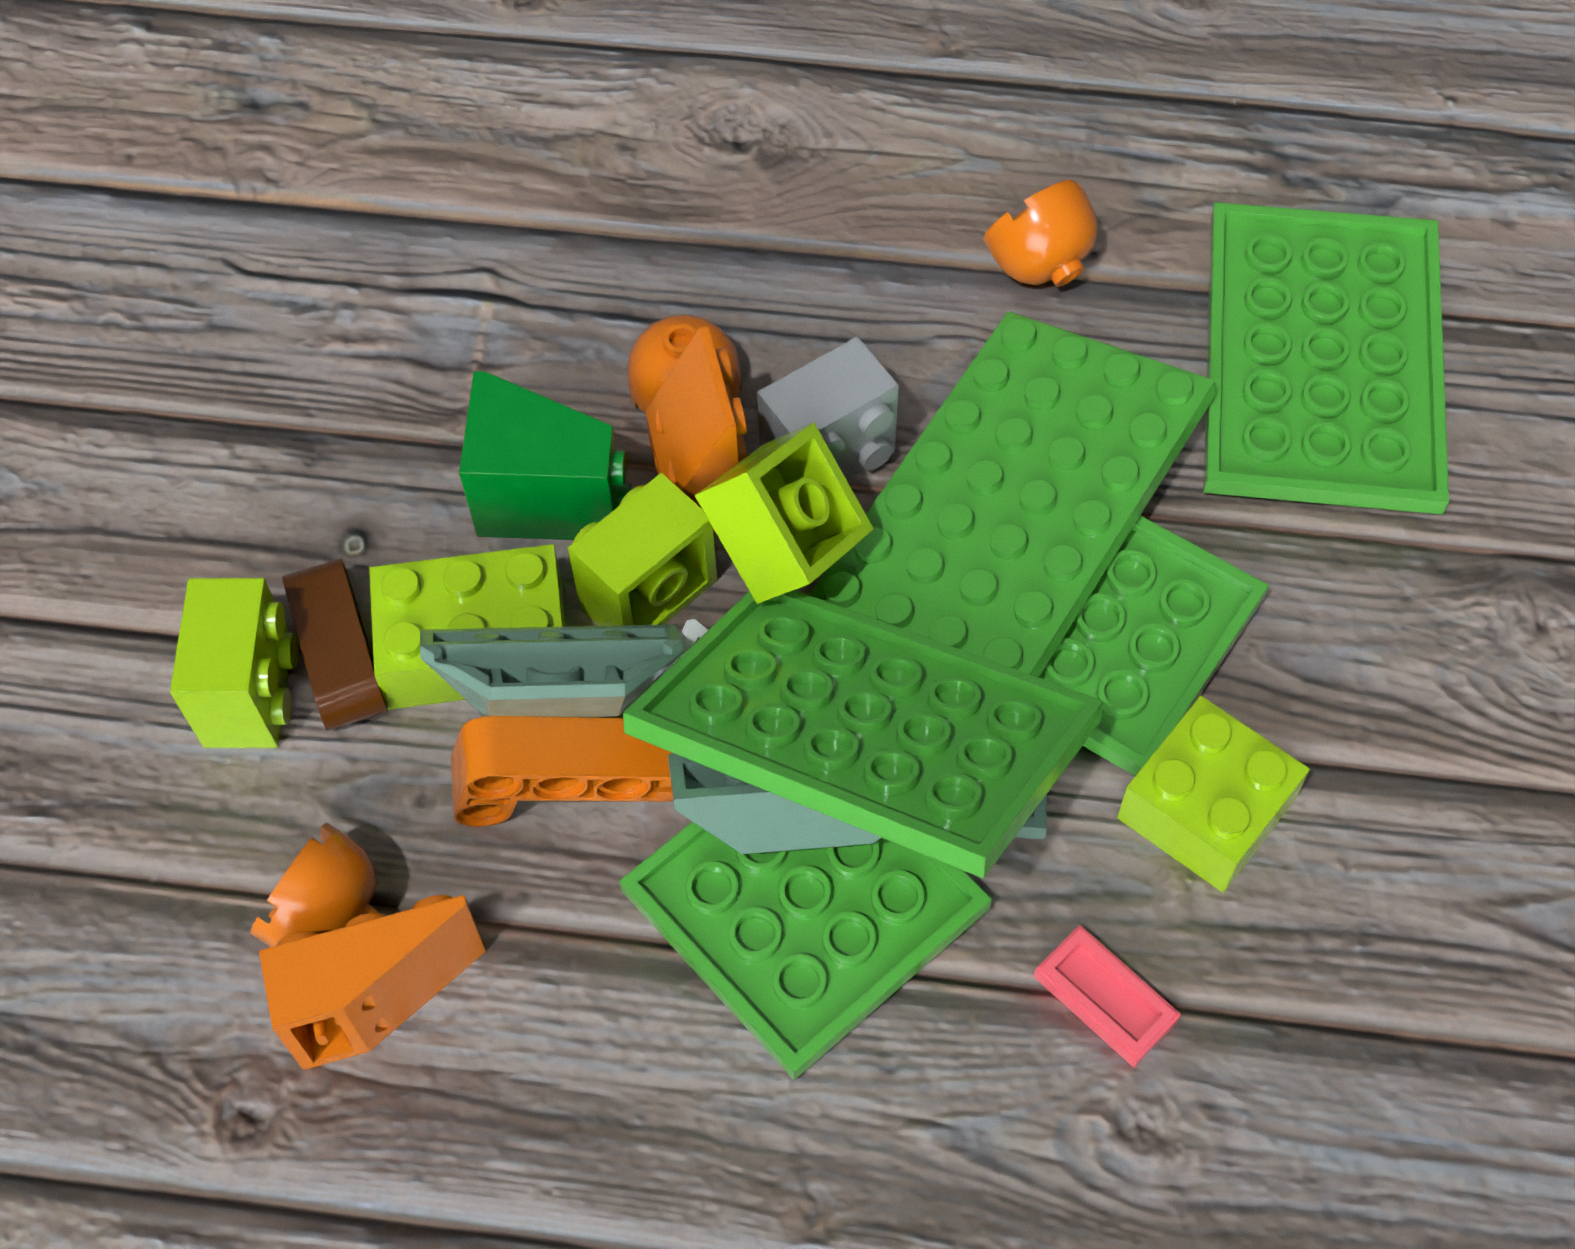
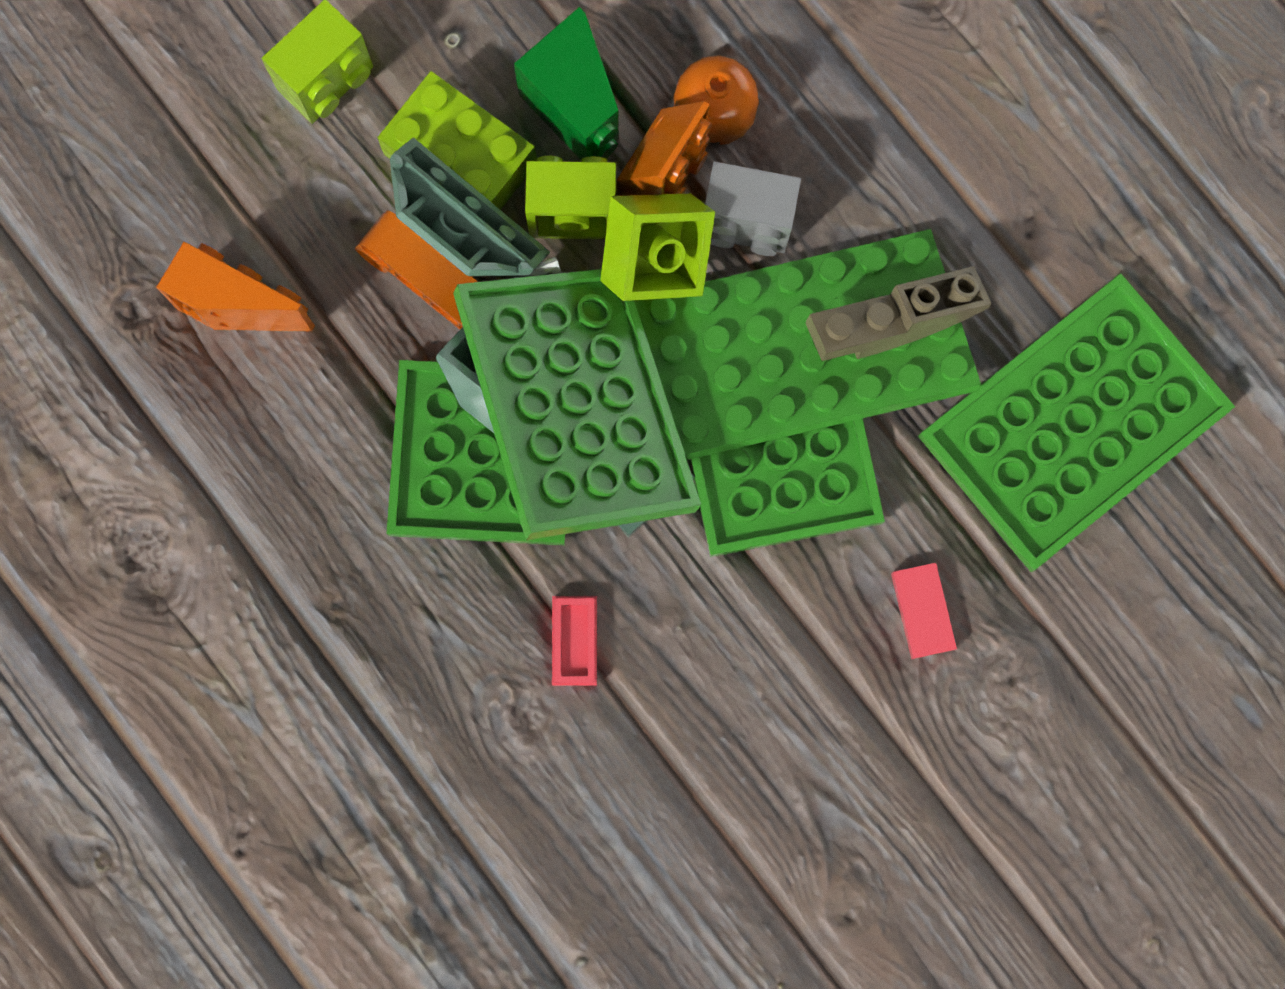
camera: 40 degrees right, 20 degrees up
(320, 888) = (251, 233): orange cylinder -> none
(334, 644) = (384, 90): reddish brown beam -> none
(1046, 237) = (996, 207): orange cylinder -> none
(1080, 381) = (898, 318): none -> dark tan slope
(1212, 793) = (729, 597): lime brick -> none
(1395, 637) = (923, 611): none -> coral tile

